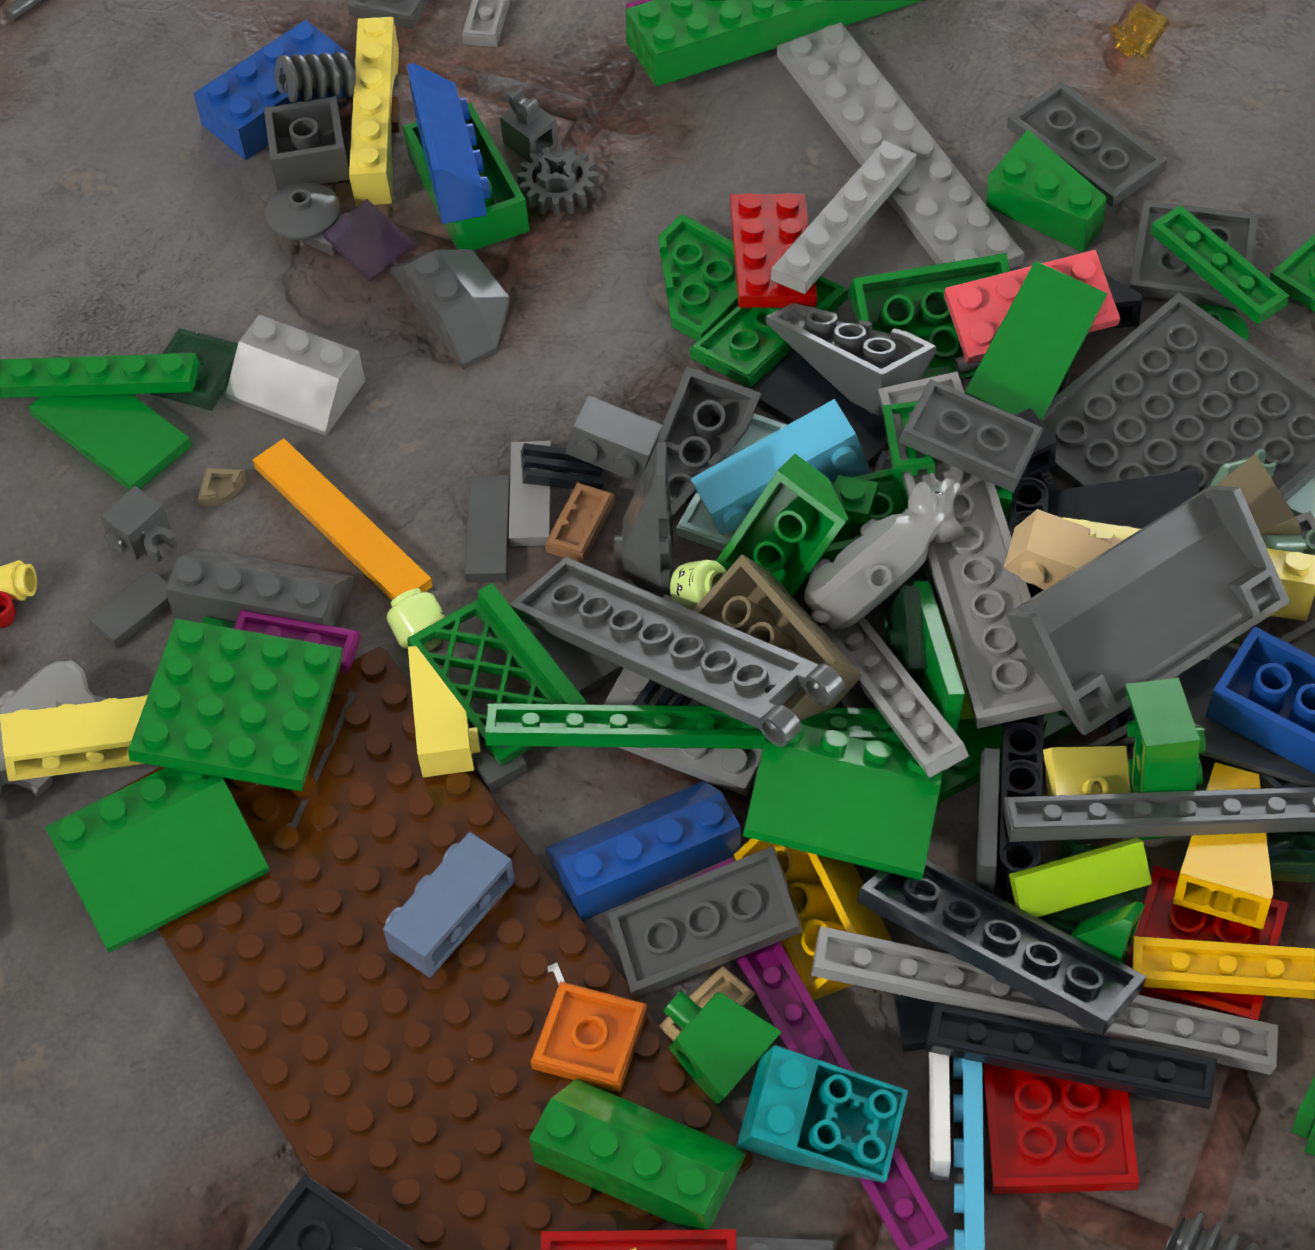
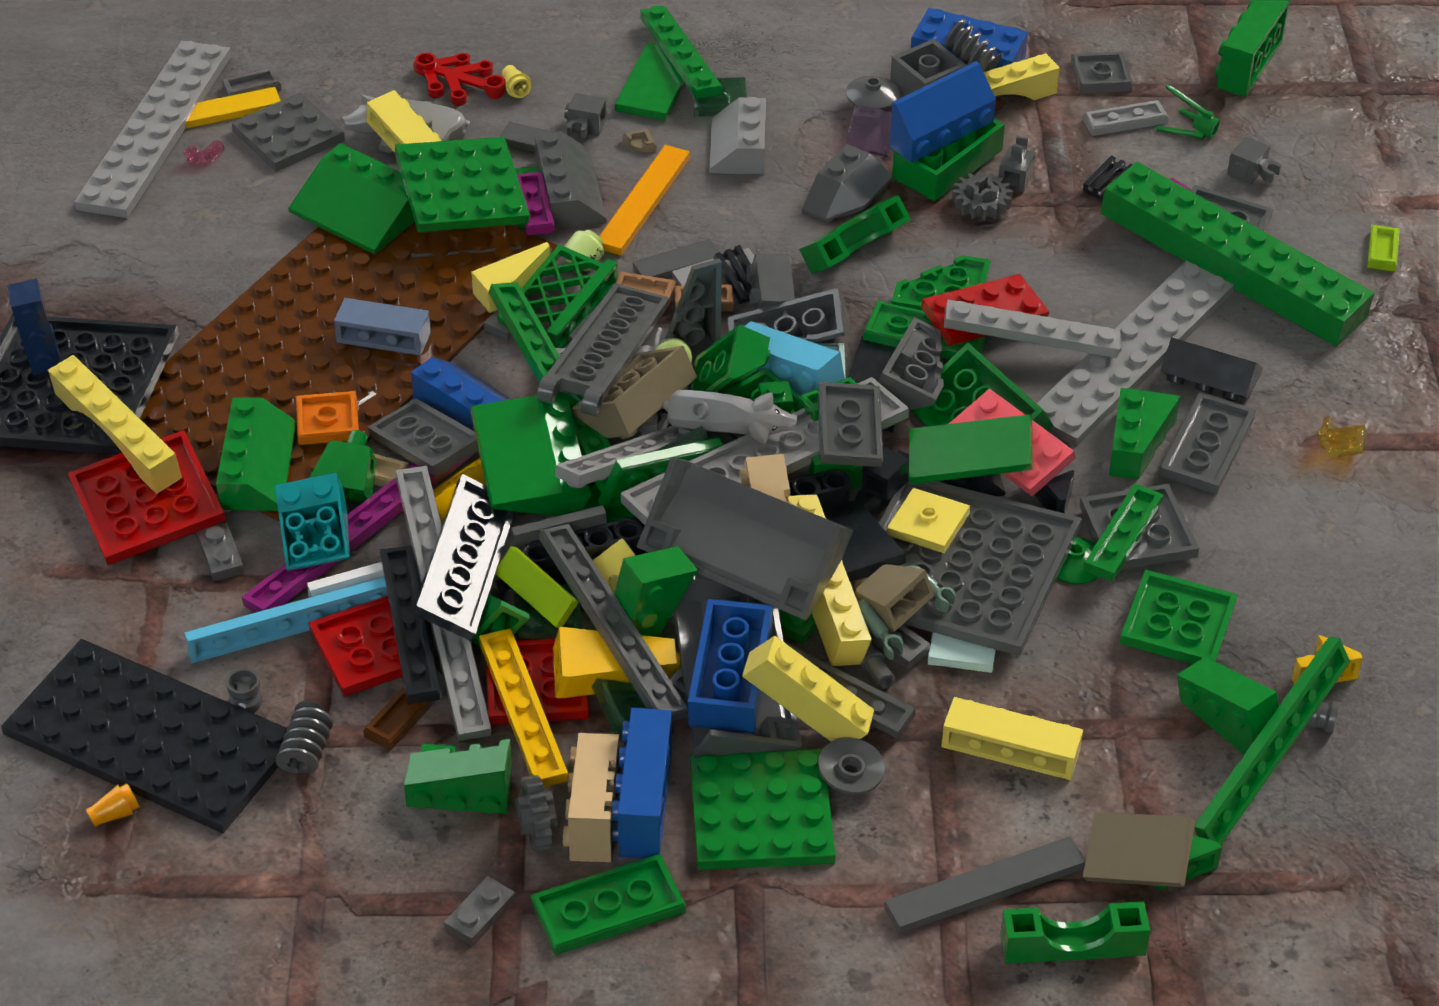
camera: 60 degrees right, 10 degrees down
(526, 570) = (654, 285): none -> medium nougat plate
(549, 292) = (854, 233): none -> green arch
(587, 38) = (1104, 176): none -> black tile
(975, 93) = (1210, 369): none -> black slope
(1116, 434) = (928, 520): none -> light yellow plate
(1203, 1140) = (394, 720): none -> reddish brown tile

